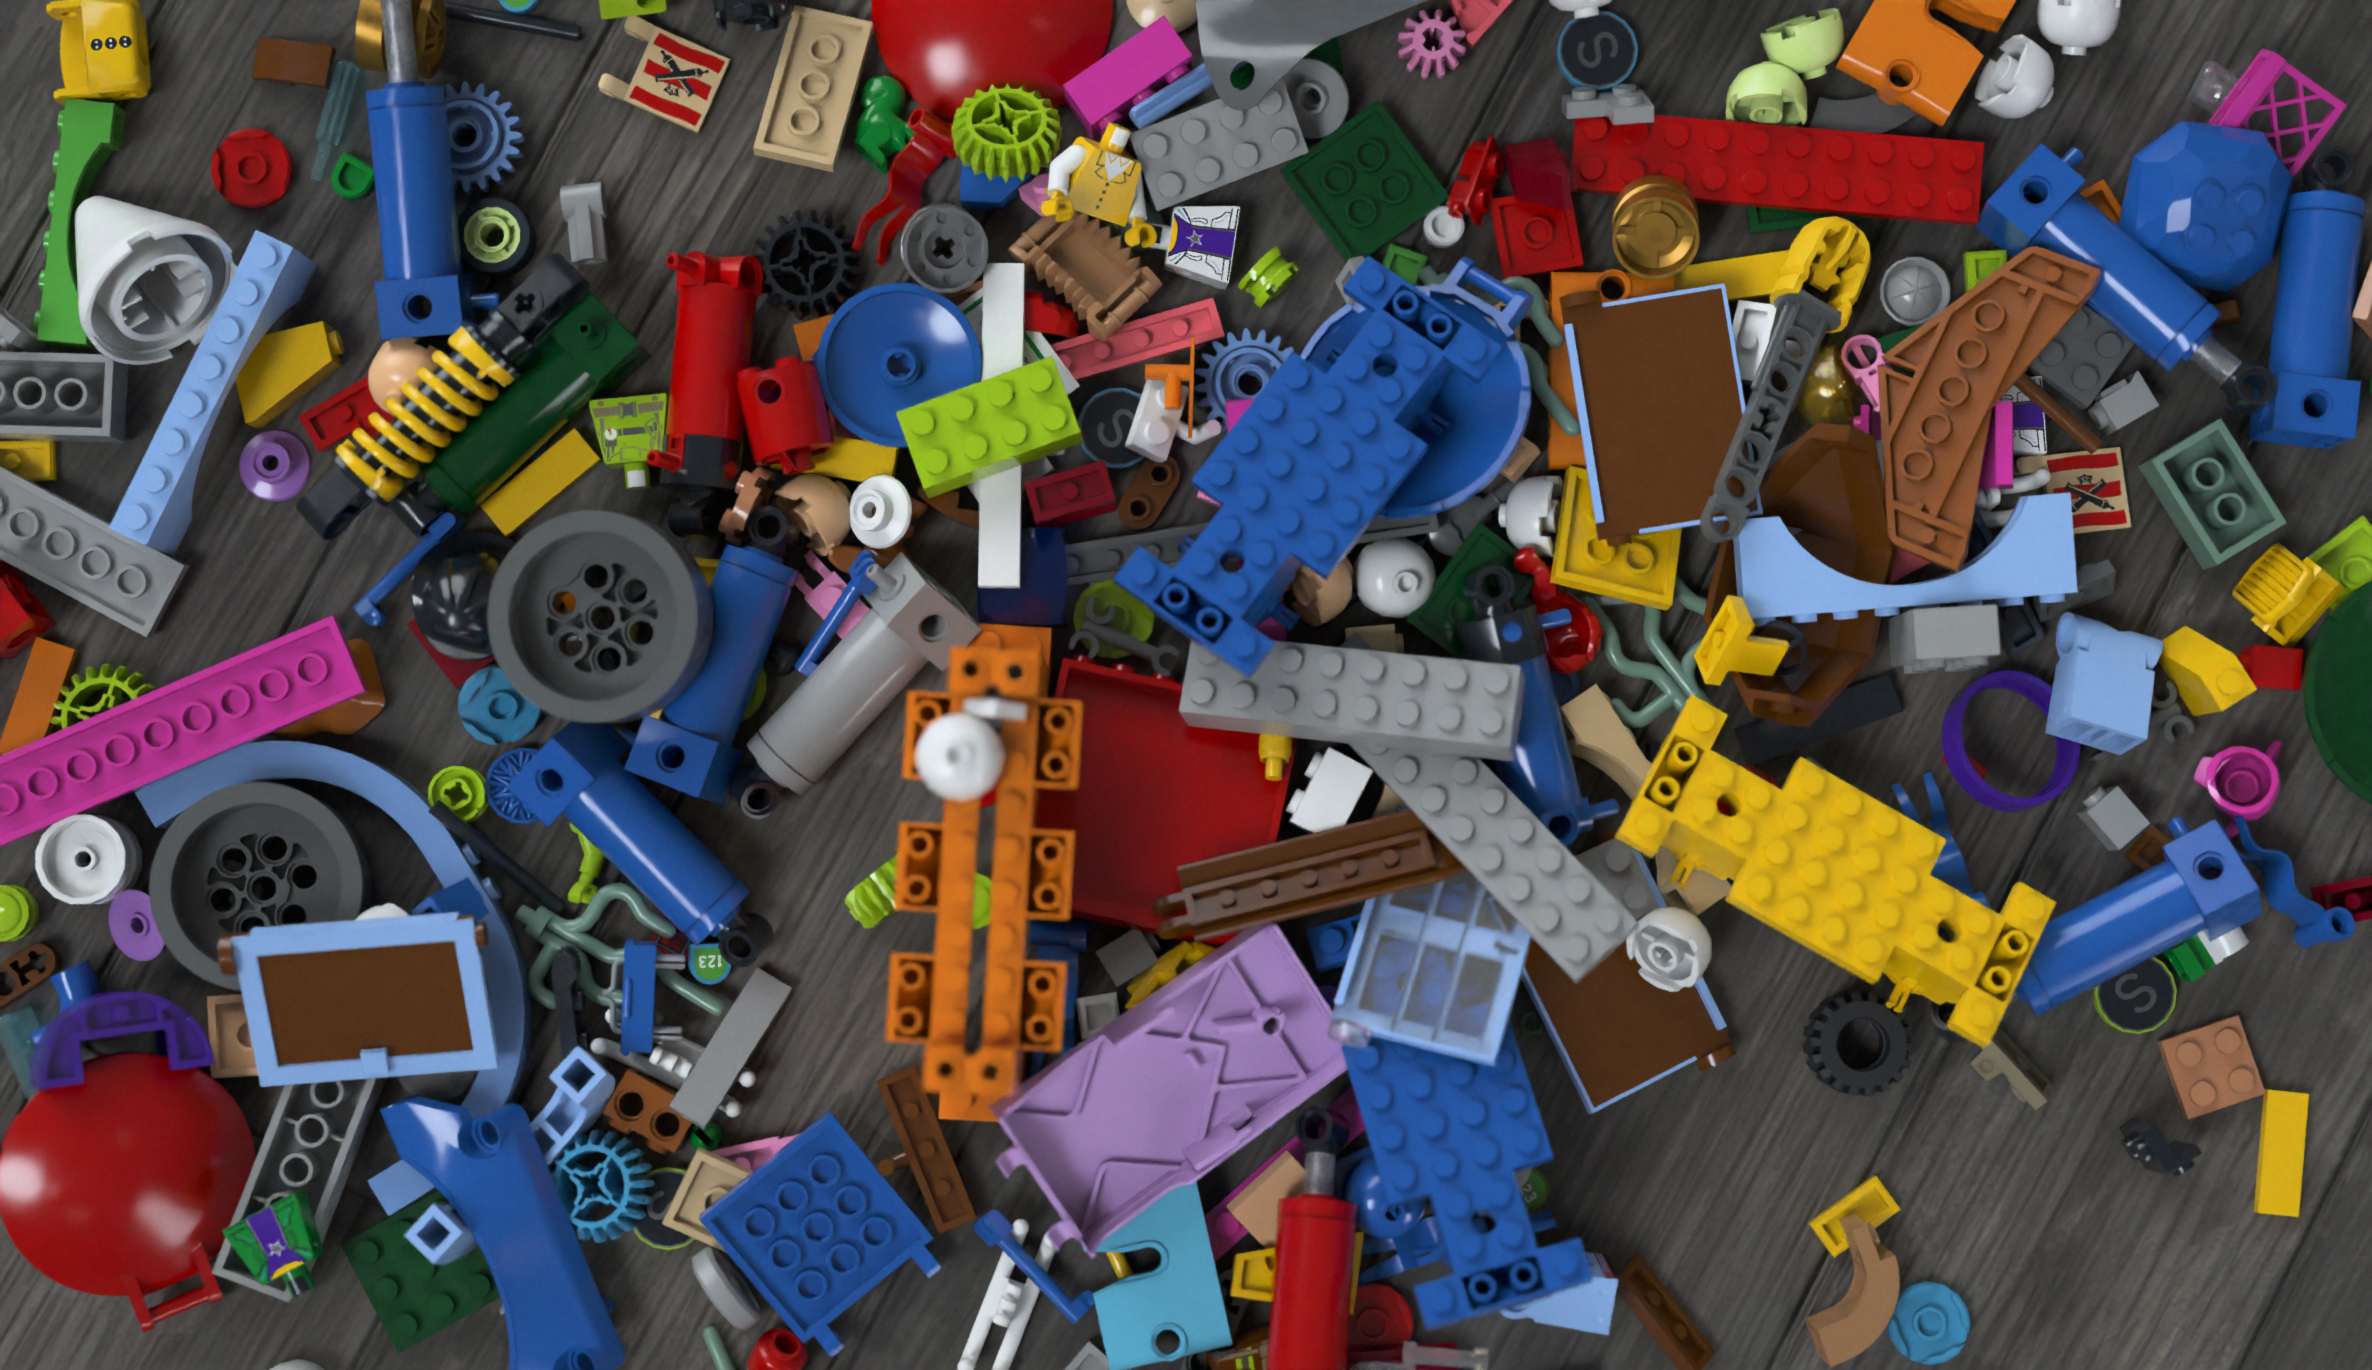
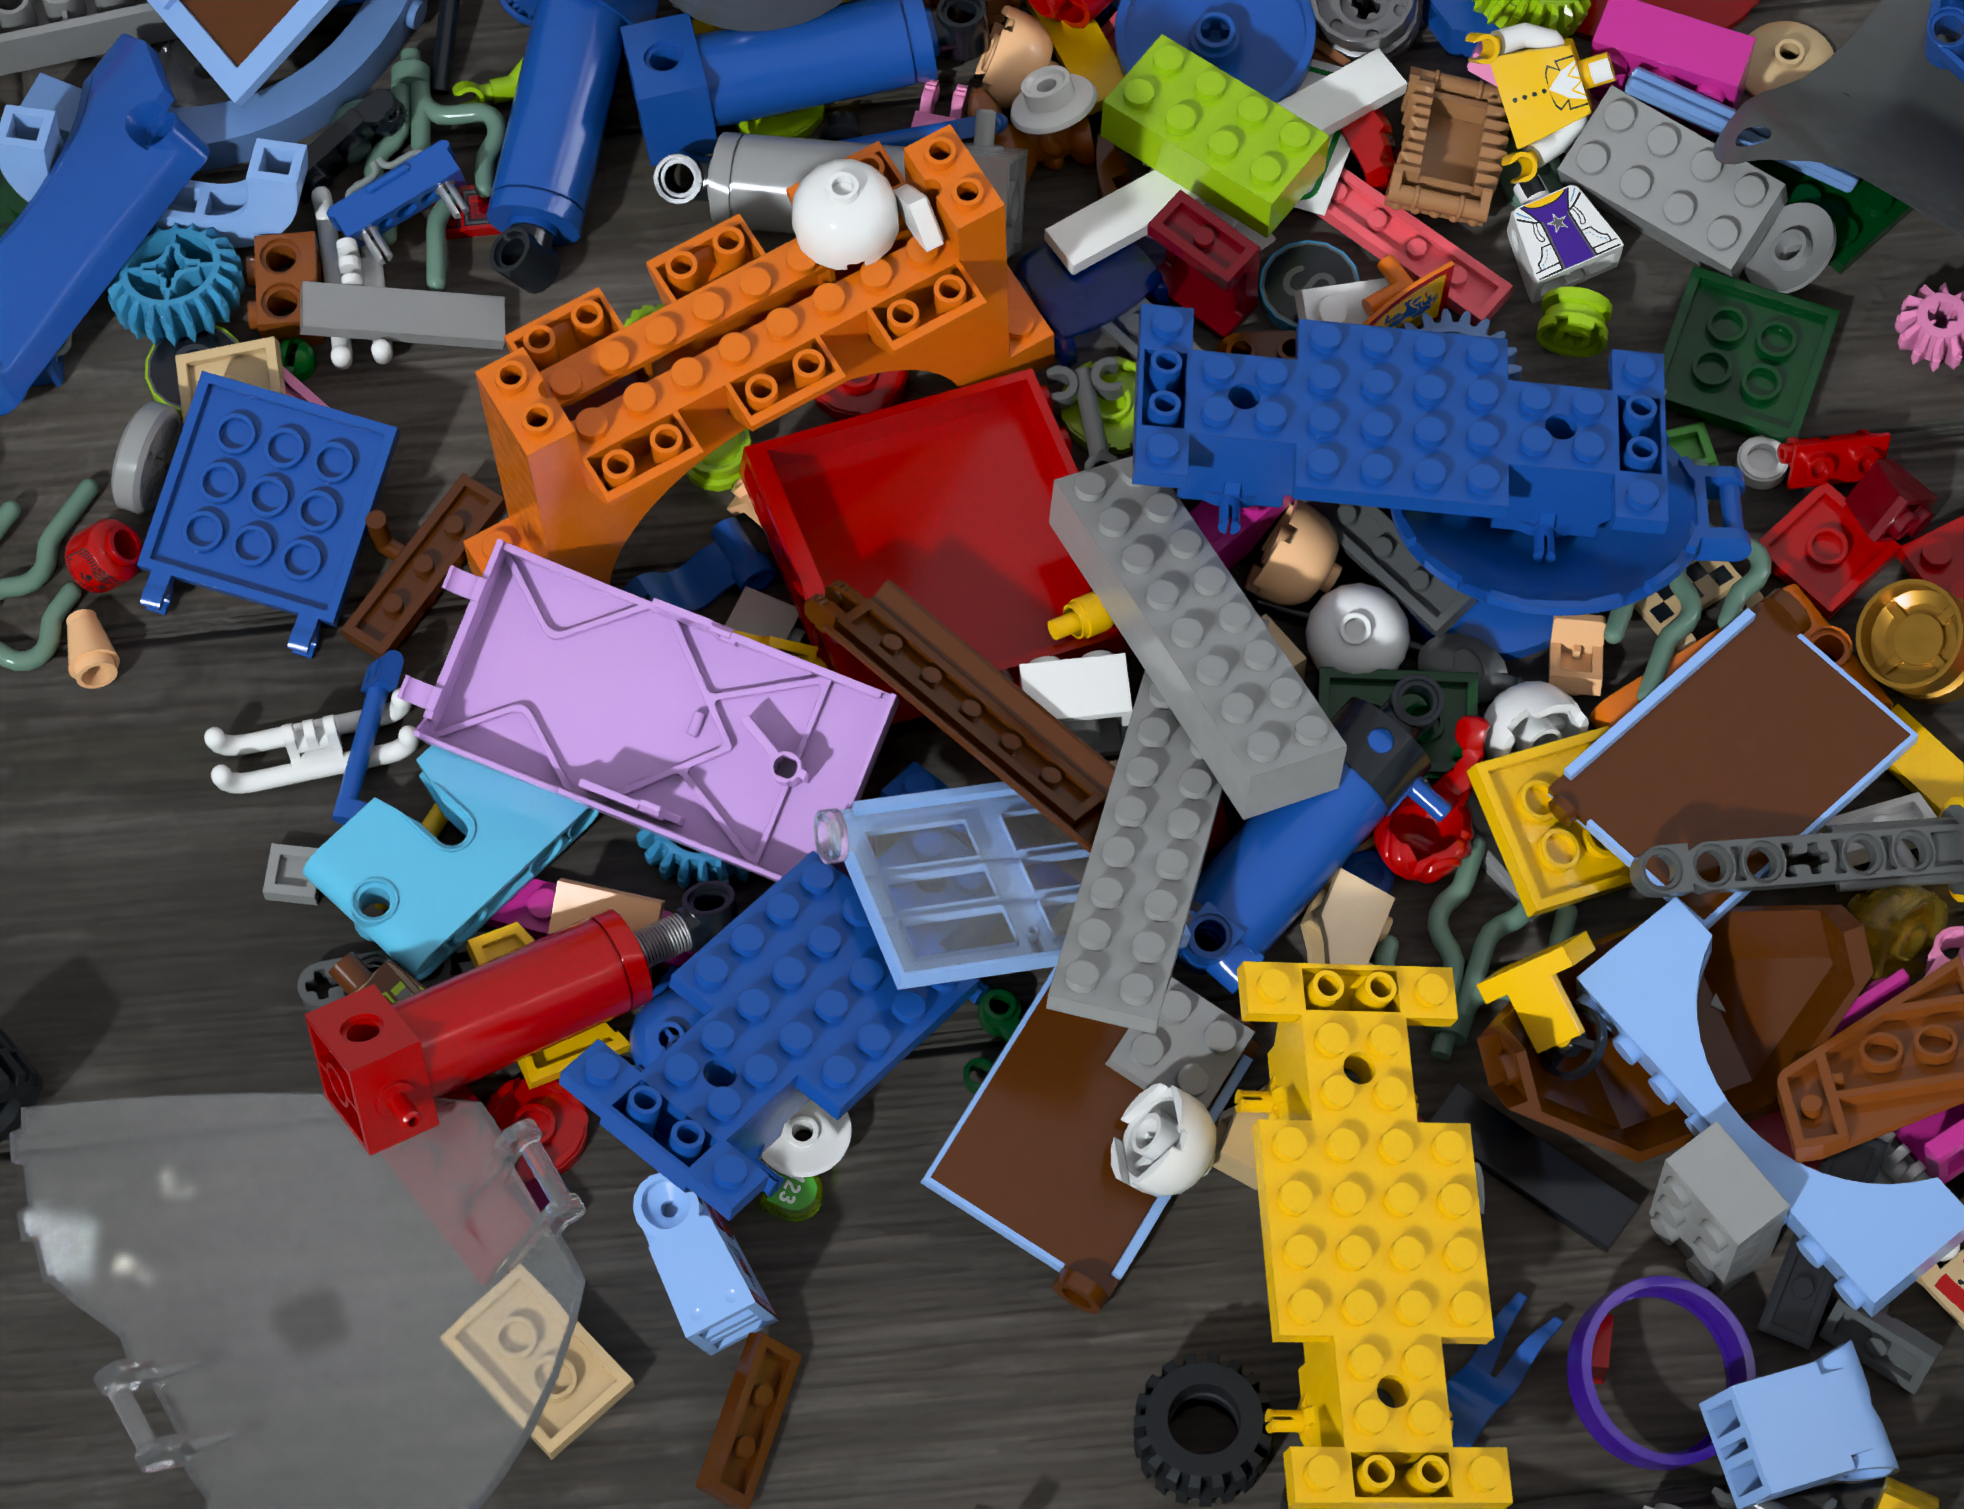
camera: 60 degrees right, 20 degrees down
(707, 962) = (473, 248): tile -> none

